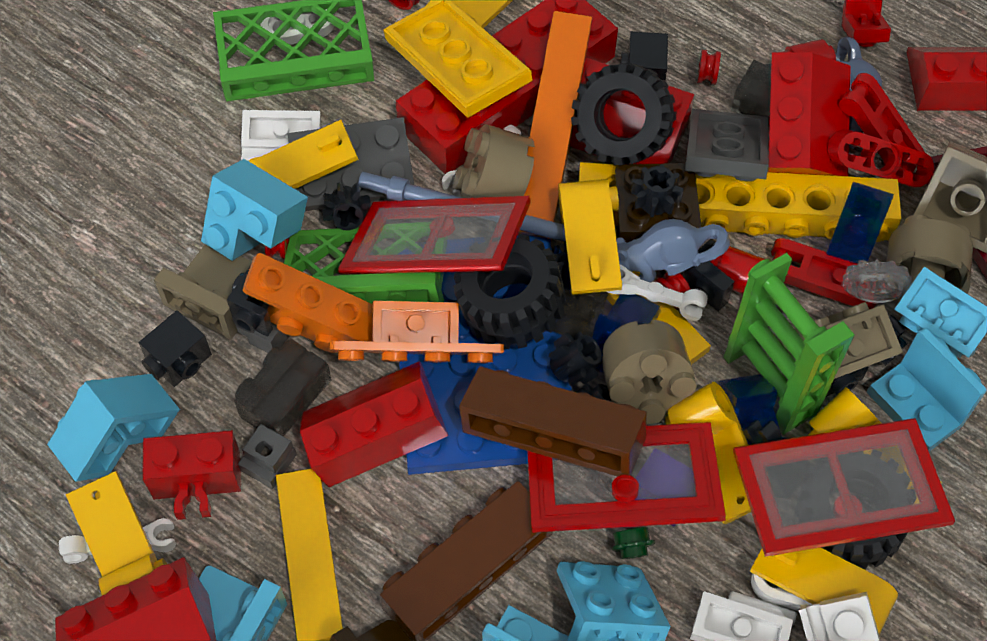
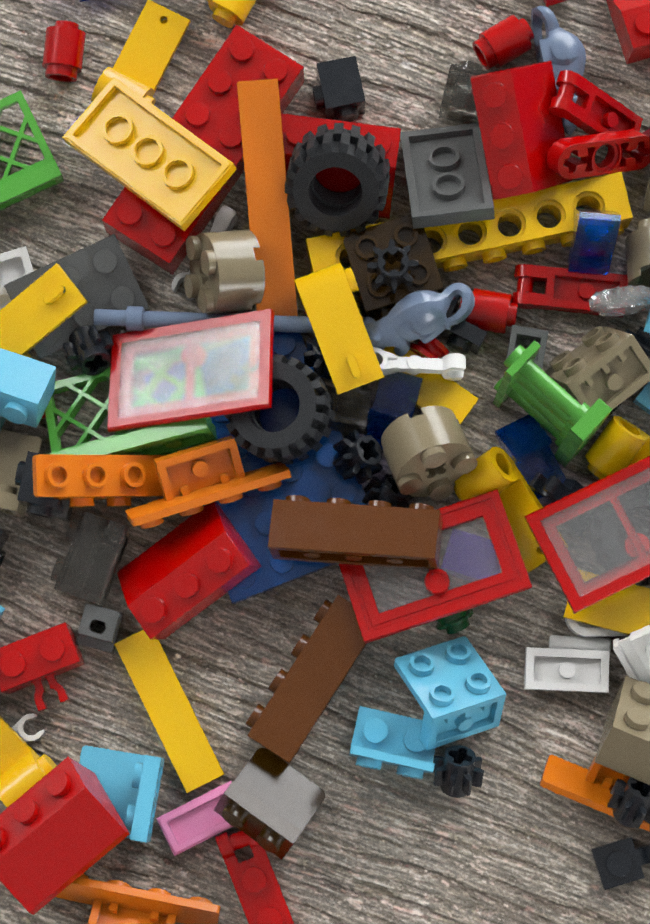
camera: 15 degrees left, 20 degrees up
(708, 67) = (405, 76): red bush -> none

